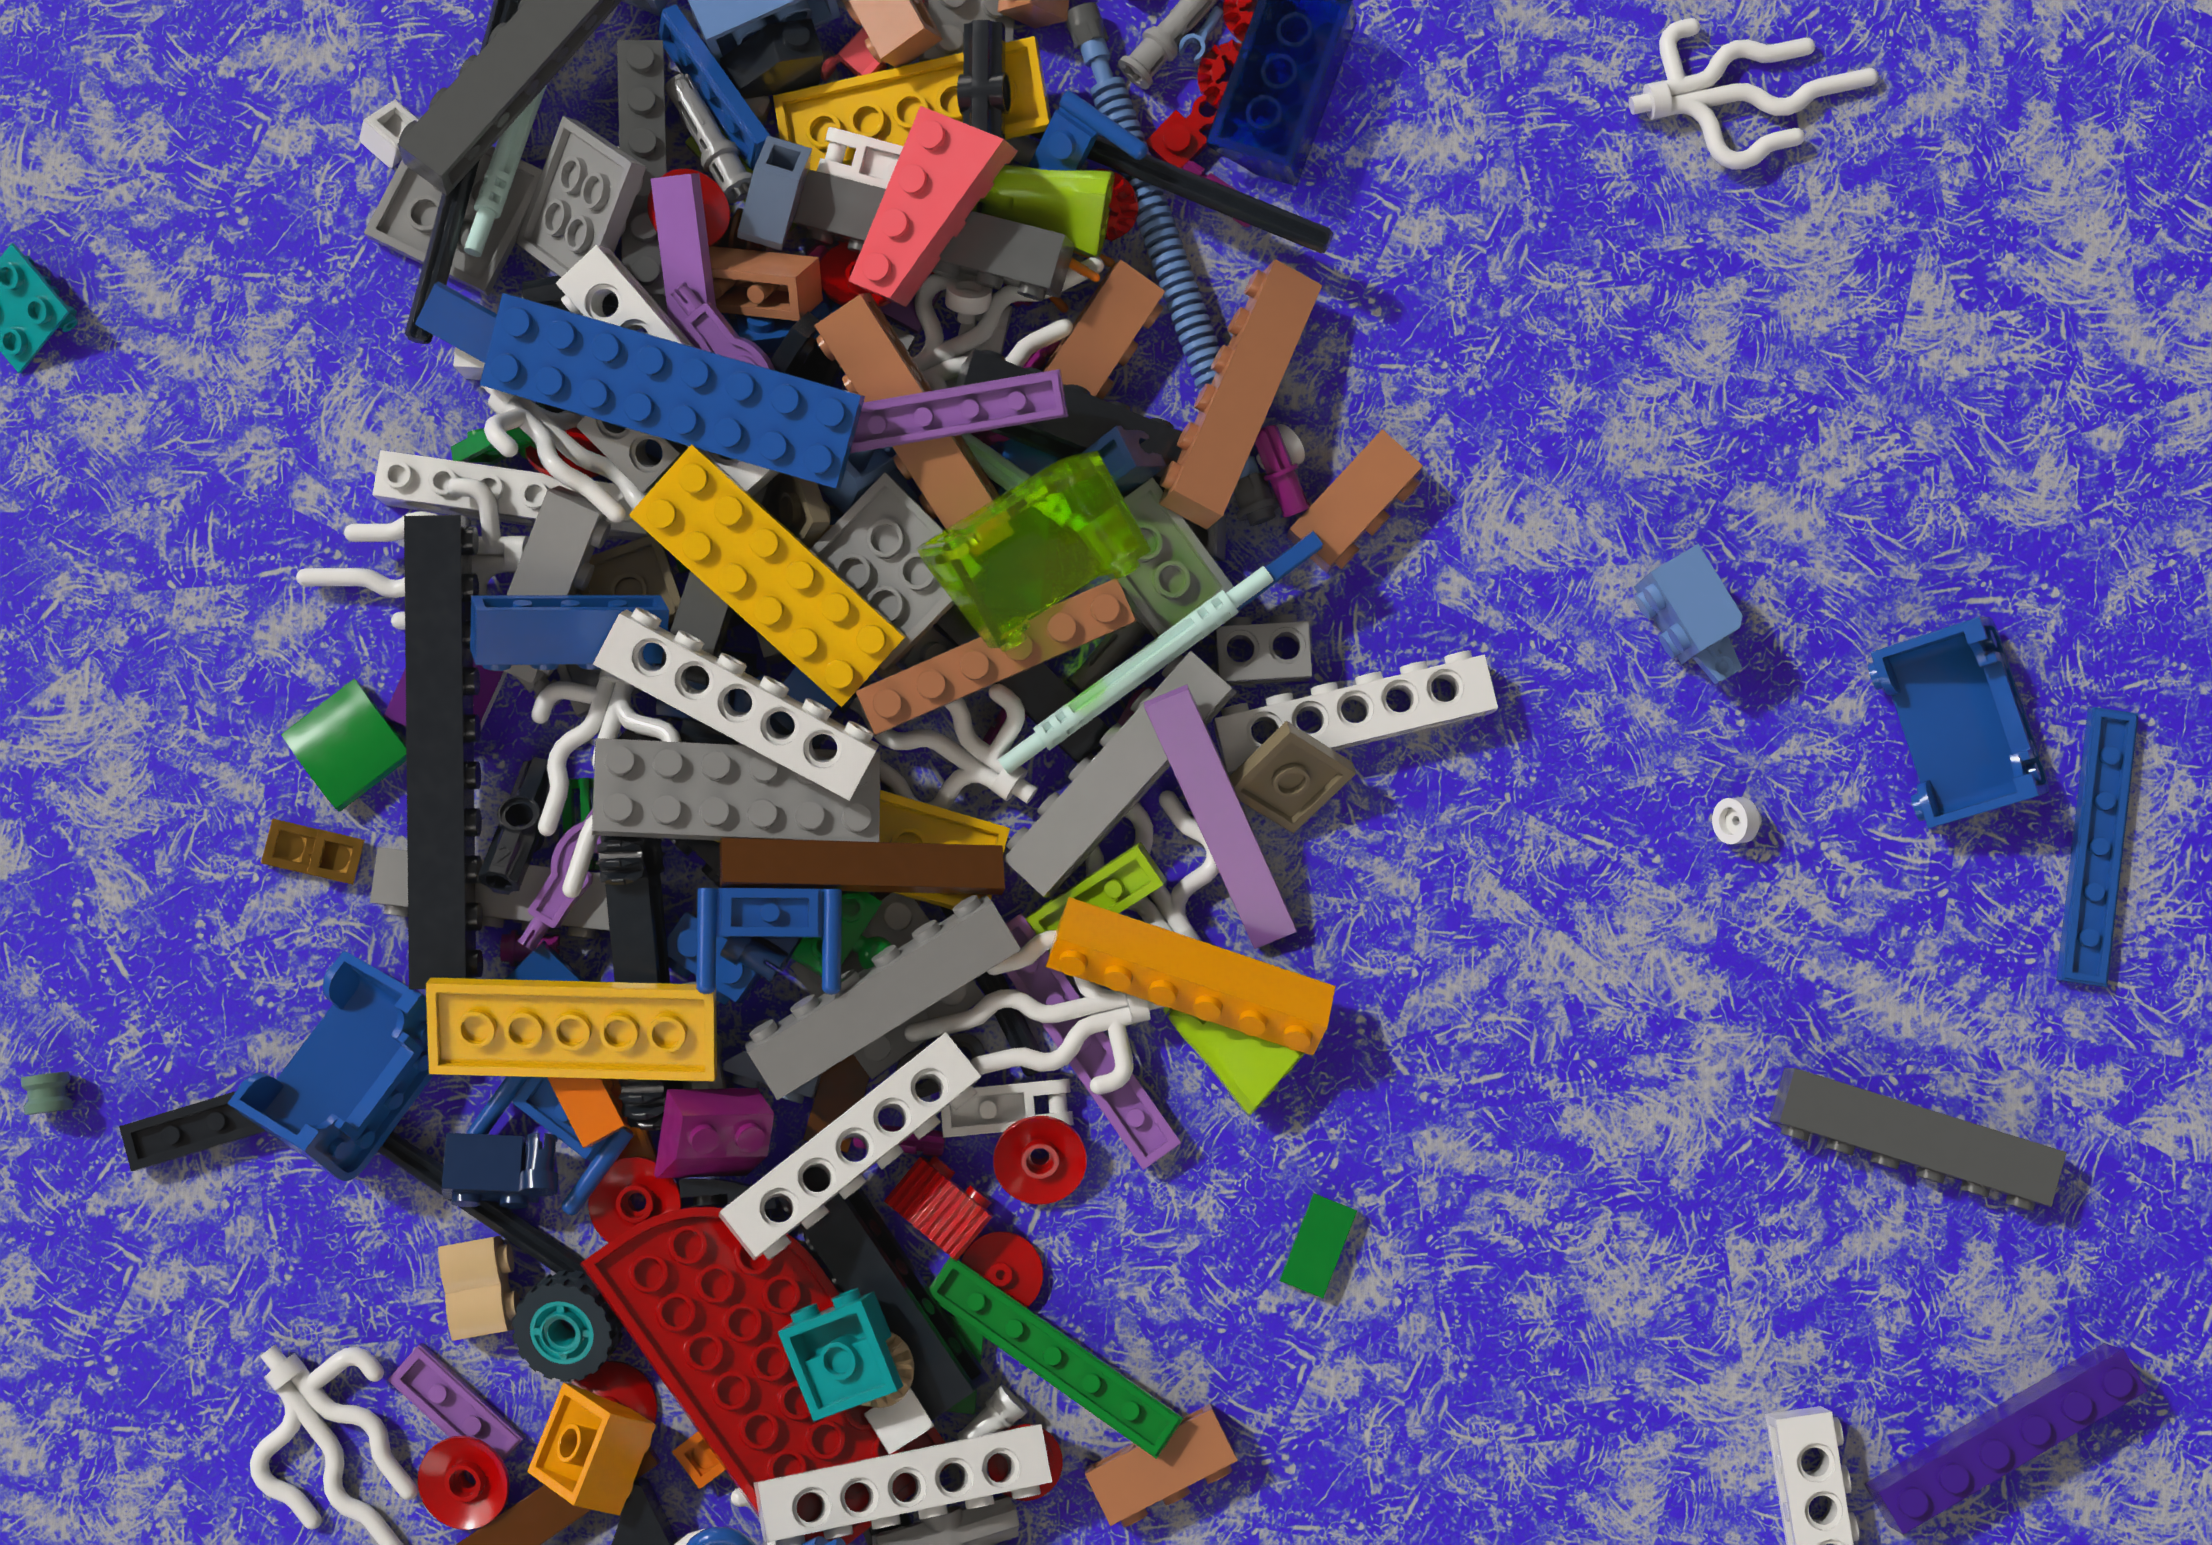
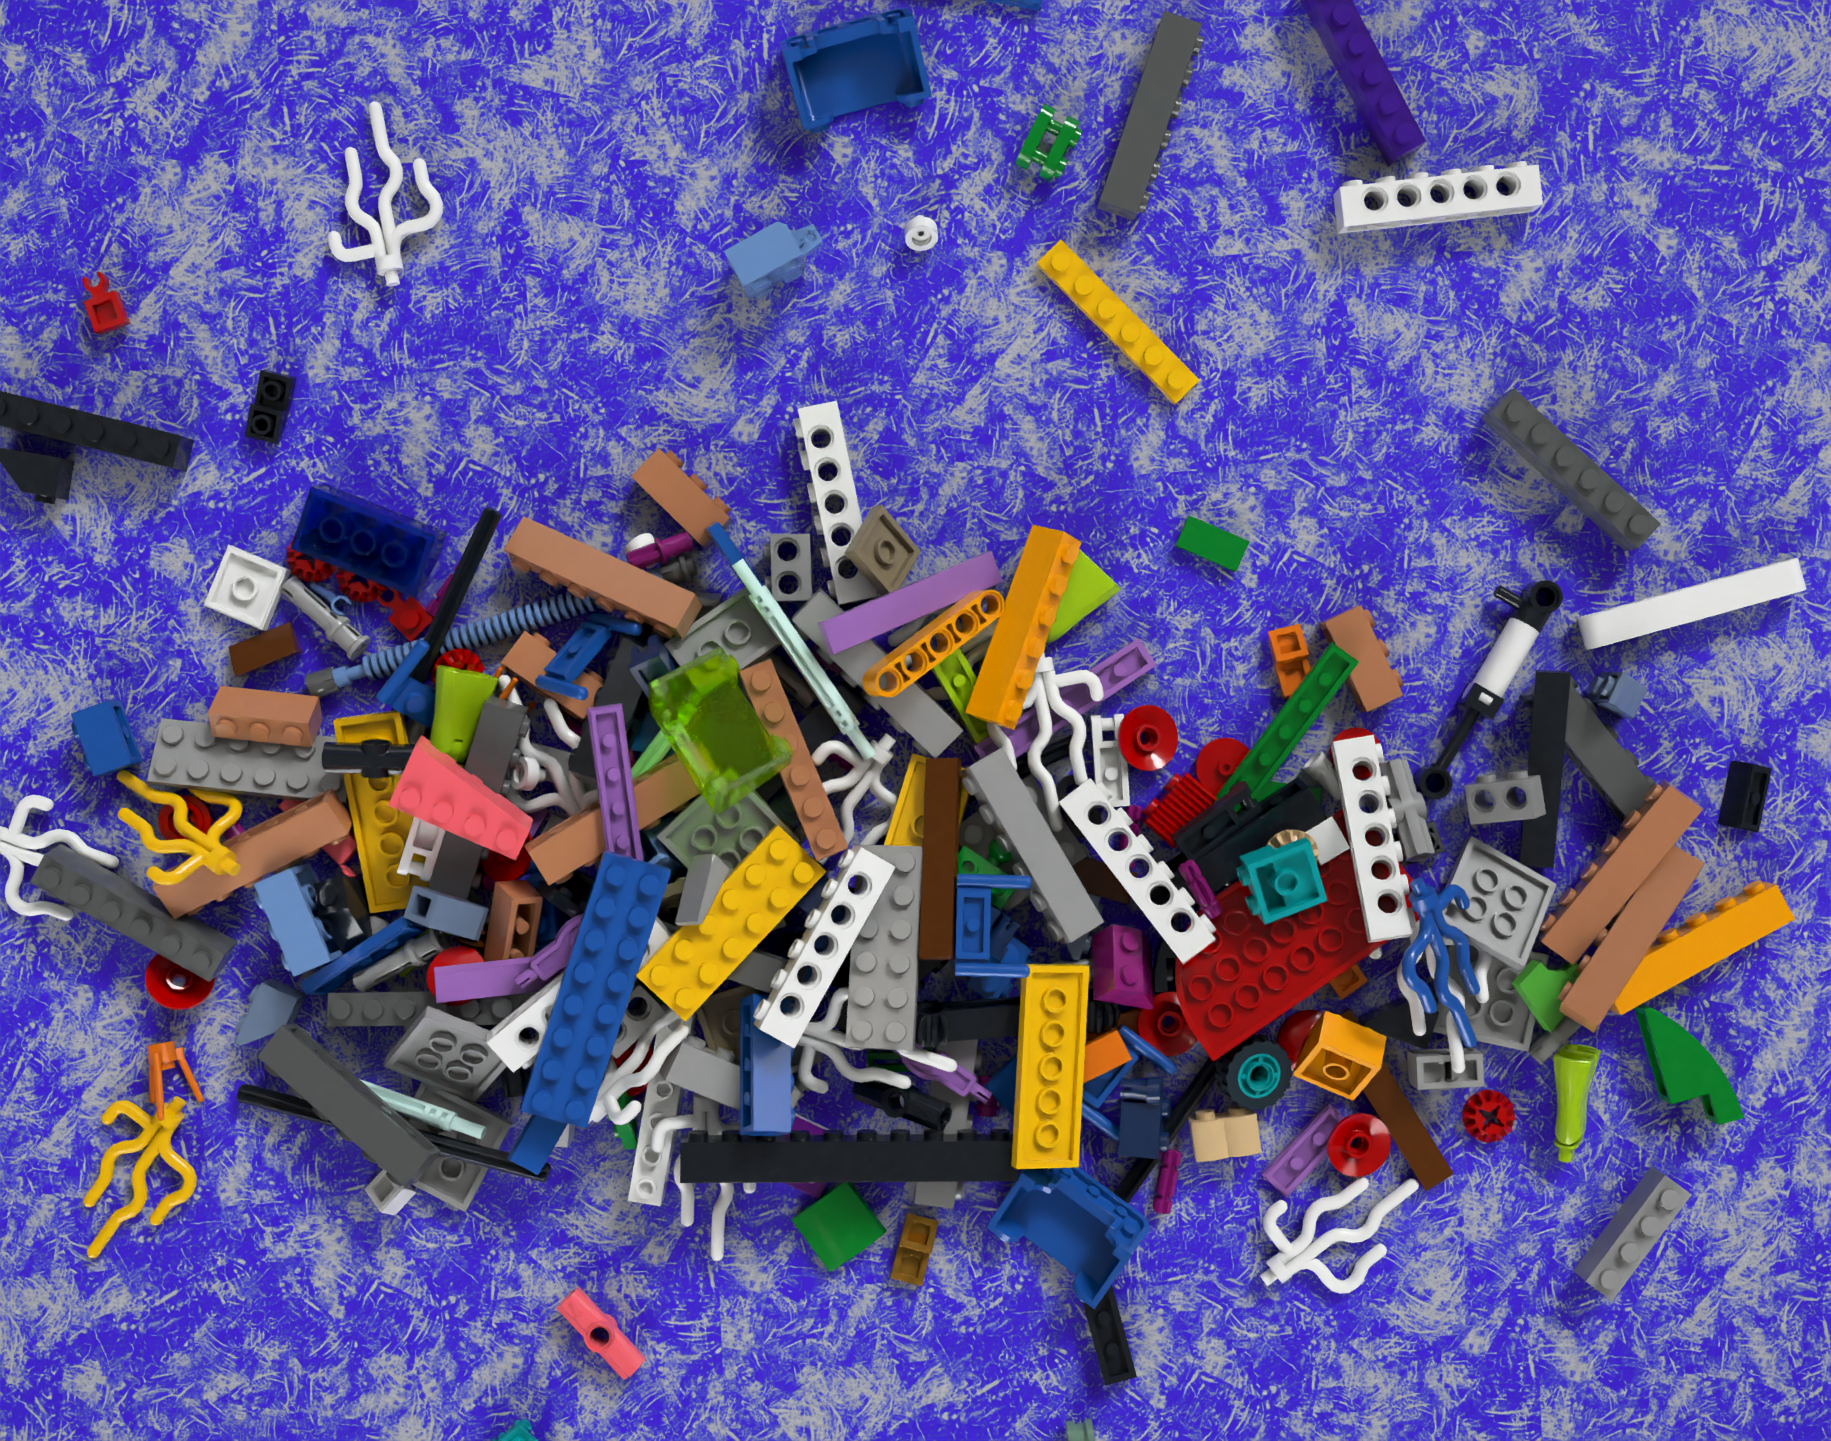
camera: 90 degrees left, 5 degrees up
(174, 443) = (617, 1348): none -> coral piece
(410, 1207) = (1167, 1181): none -> magenta axle
(813, 531) = (701, 887): none -> light grey slope
(826, 1238) = (1200, 889): none -> magenta axle
(921, 1260) = (1216, 822): none -> black plate
(1138, 363) = (579, 651): none -> blue plate
(1160, 1361) = (1289, 657): none -> orange slope
(1167, 870) = (919, 646): none -> light orange beam
(1625, 1102) = (1117, 322): none -> yellow plate
(1882, 1020) = (1067, 135): none -> green brick

